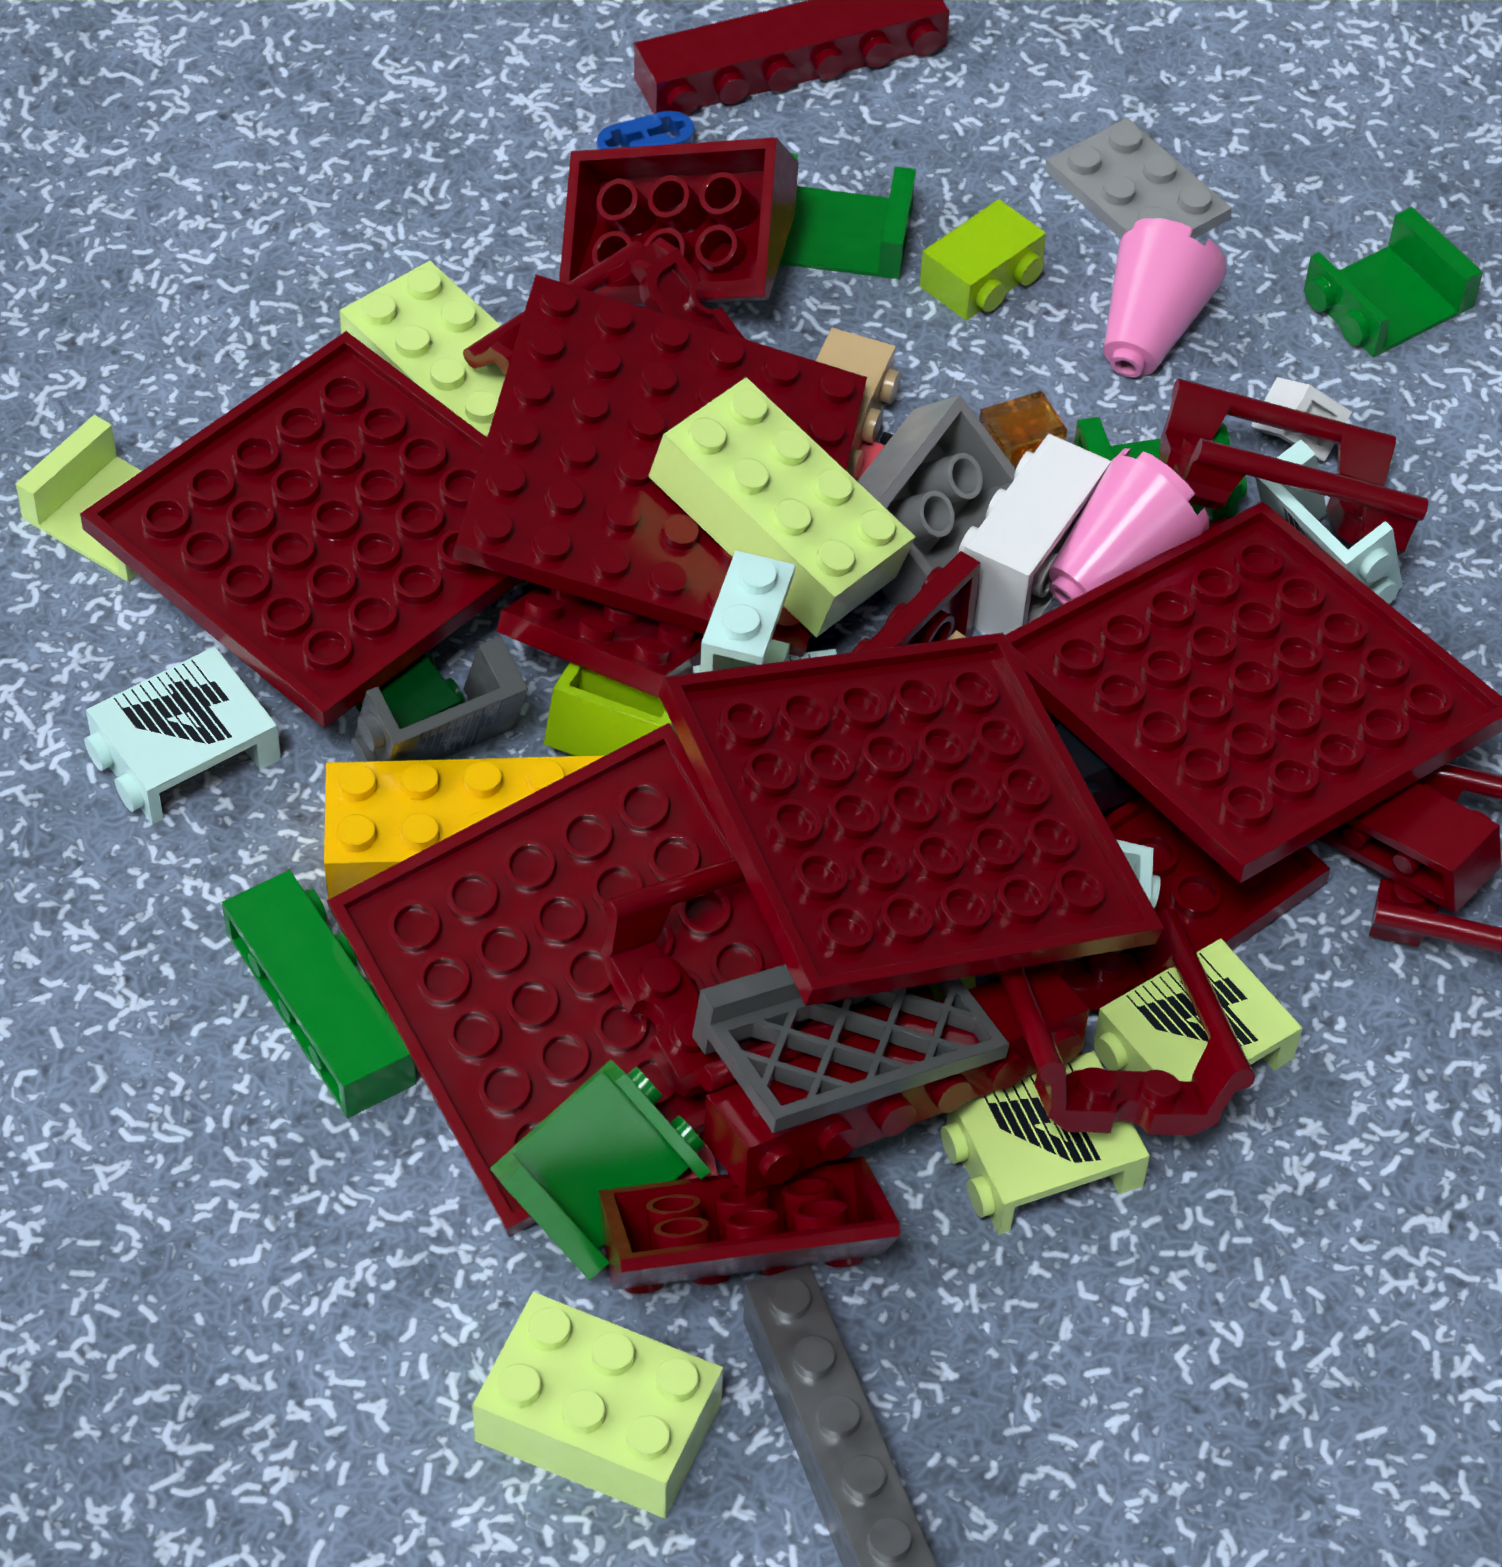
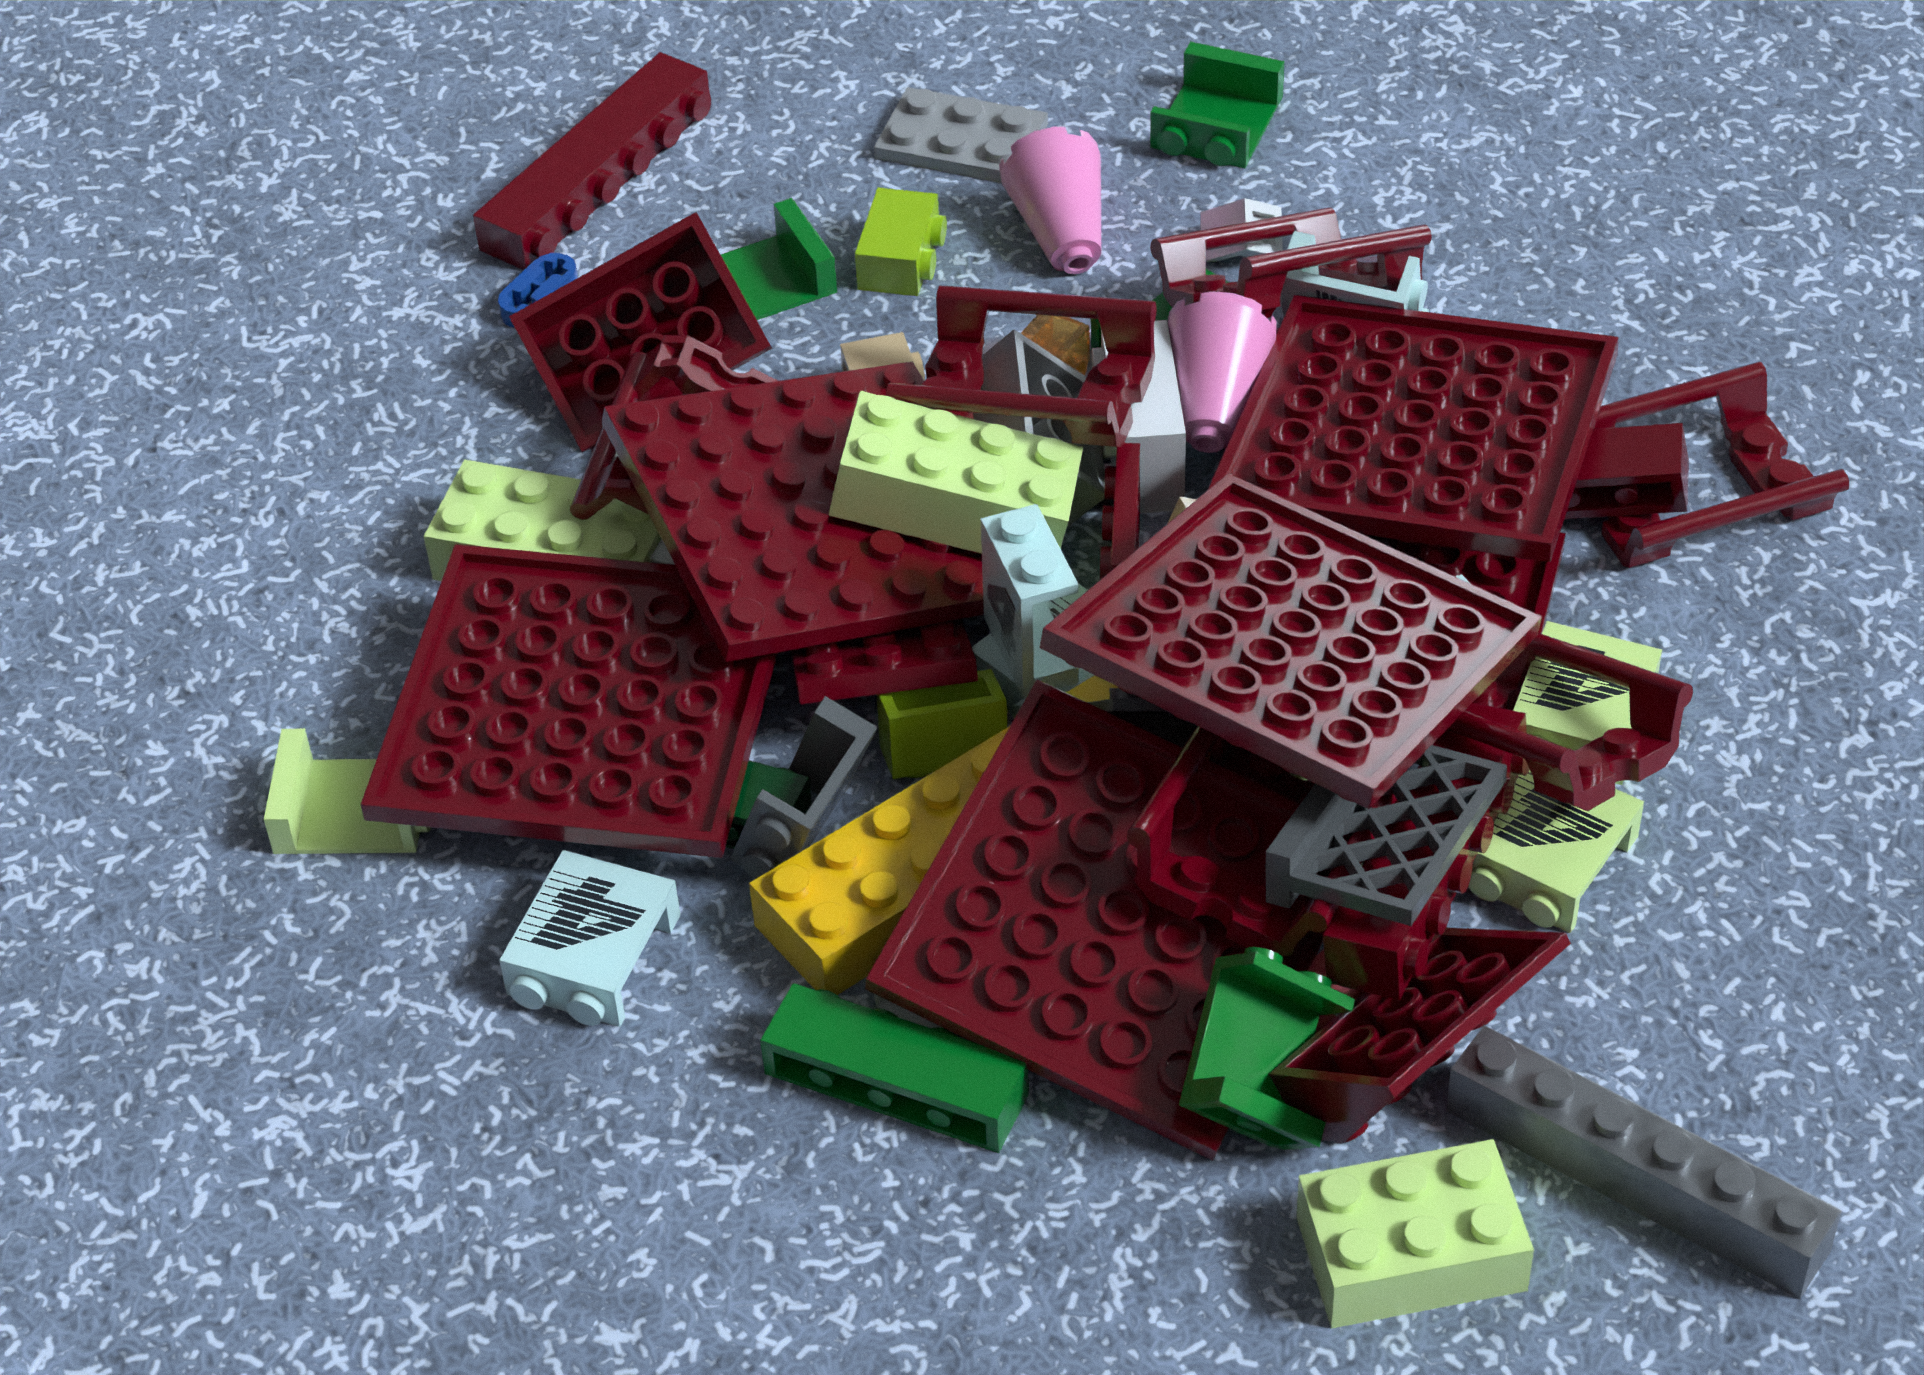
camera: 30 degrees left, 5 degrees down
(886, 406) = (1103, 407): none -> dark red piece

